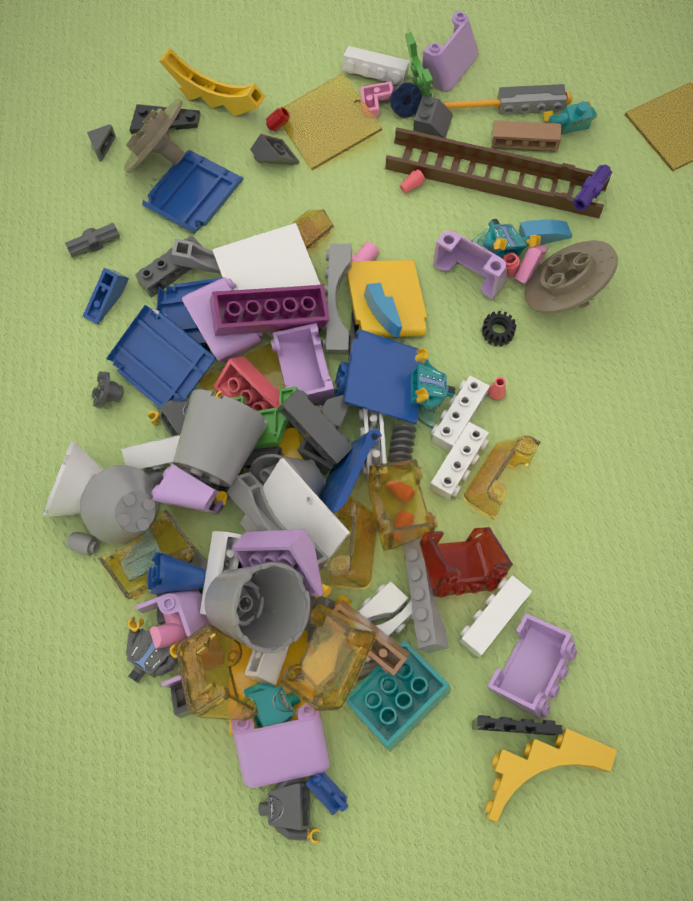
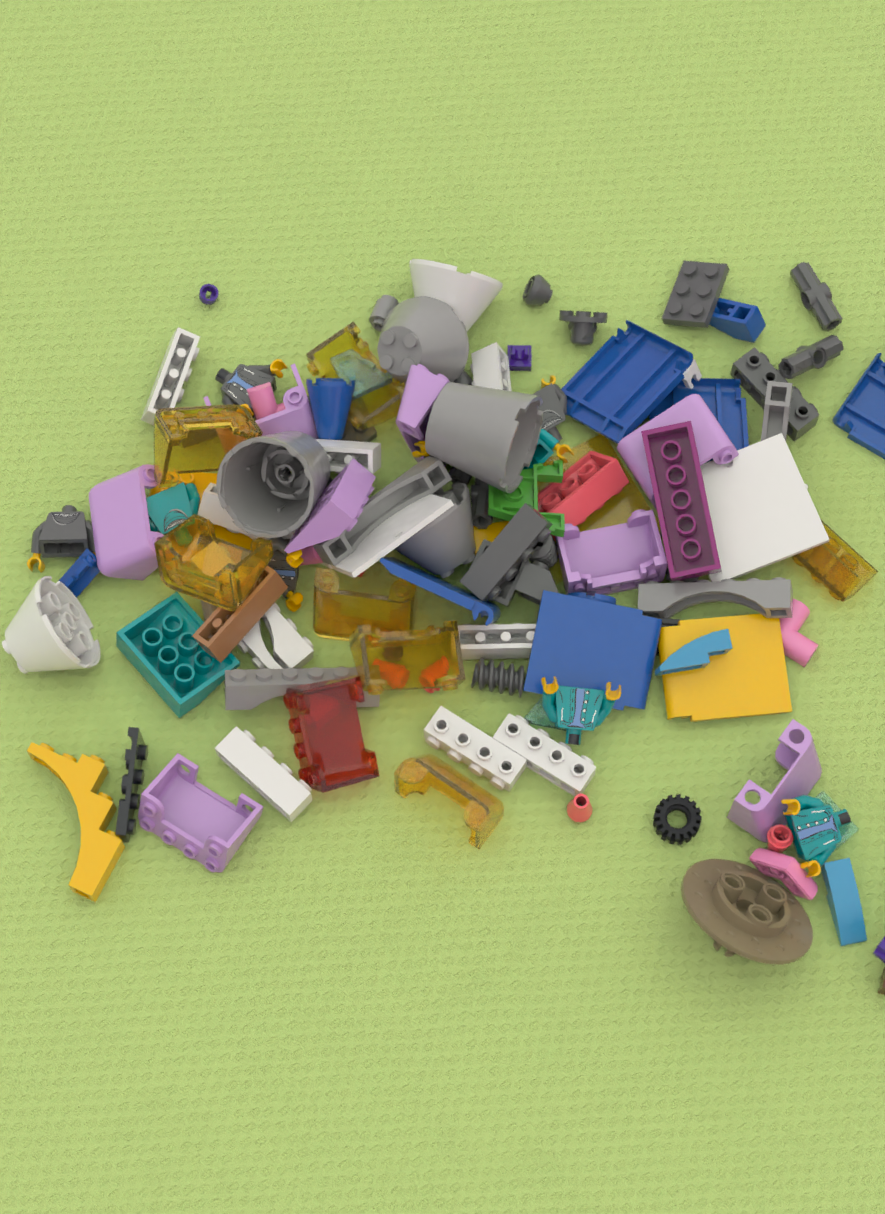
camera: 90 degrees right, 0 degrees up
(53, 692) = (213, 297): none -> dark purple hinge
(72, 426) = (537, 291): none -> dark grey cone
(85, 315) = (695, 294): none -> dark grey plate
(129, 438) = (519, 357): none -> dark purple tile
(136, 722) = (172, 373): none -> white brick
(144, 240) = (810, 356): none -> dark grey piece
(389, 808) = (51, 631): none -> white cone

